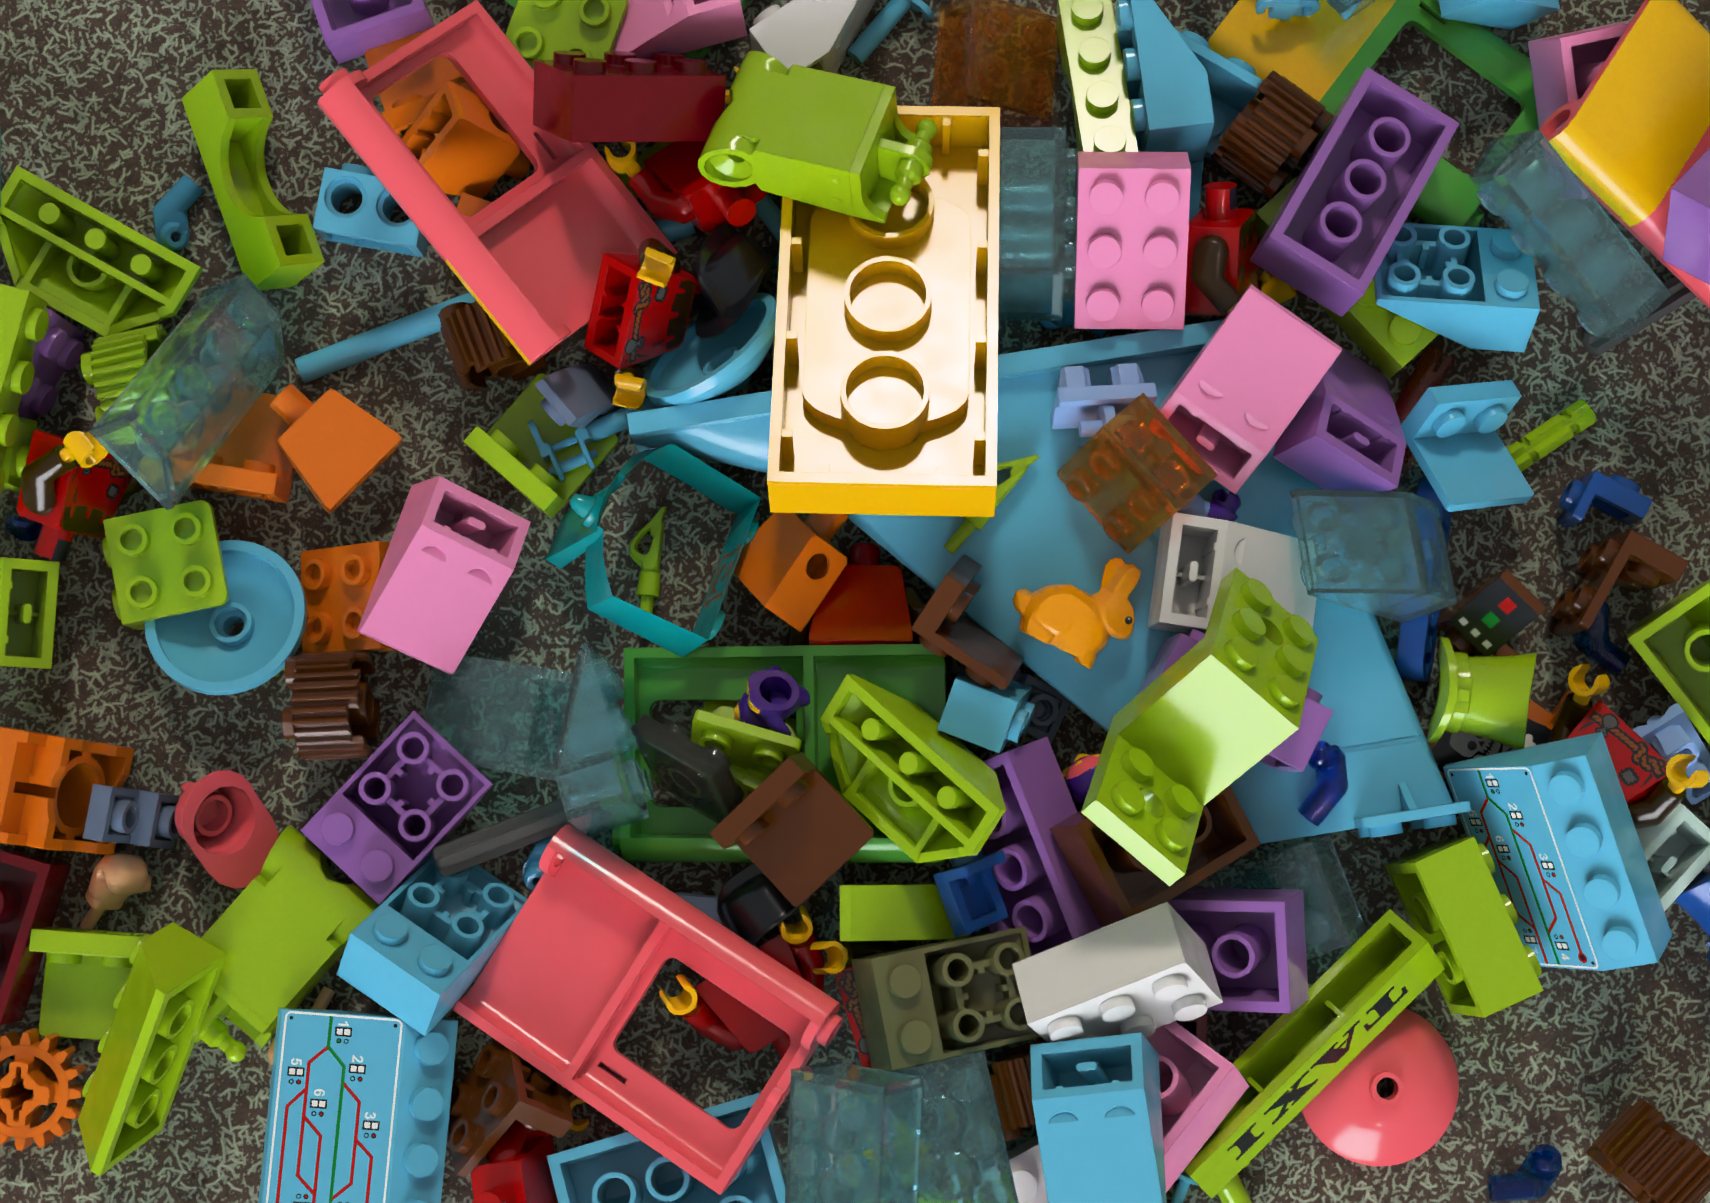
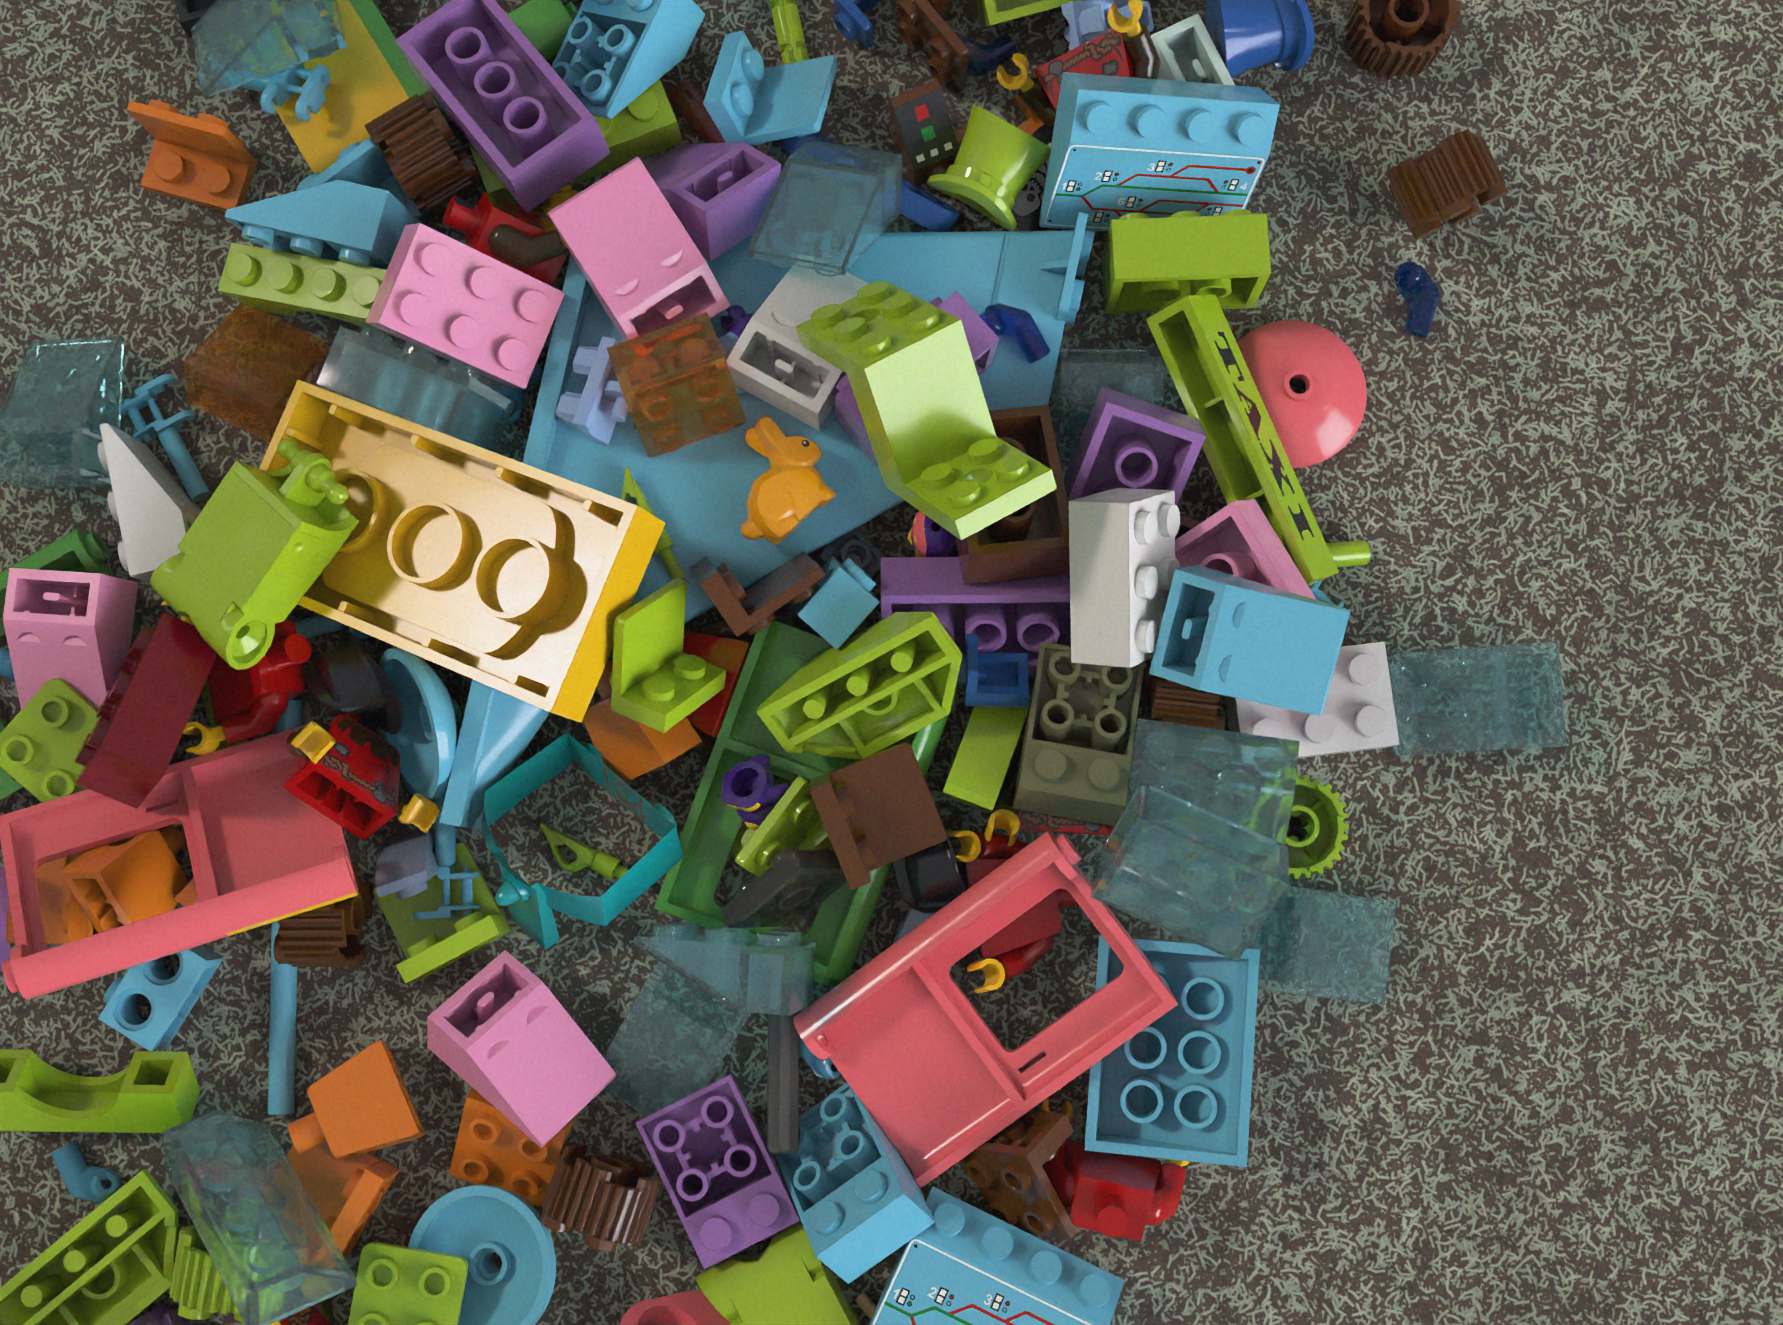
camera: 65 degrees left, 0 degrees up
(844, 559) = (650, 672): none -> lime bracket

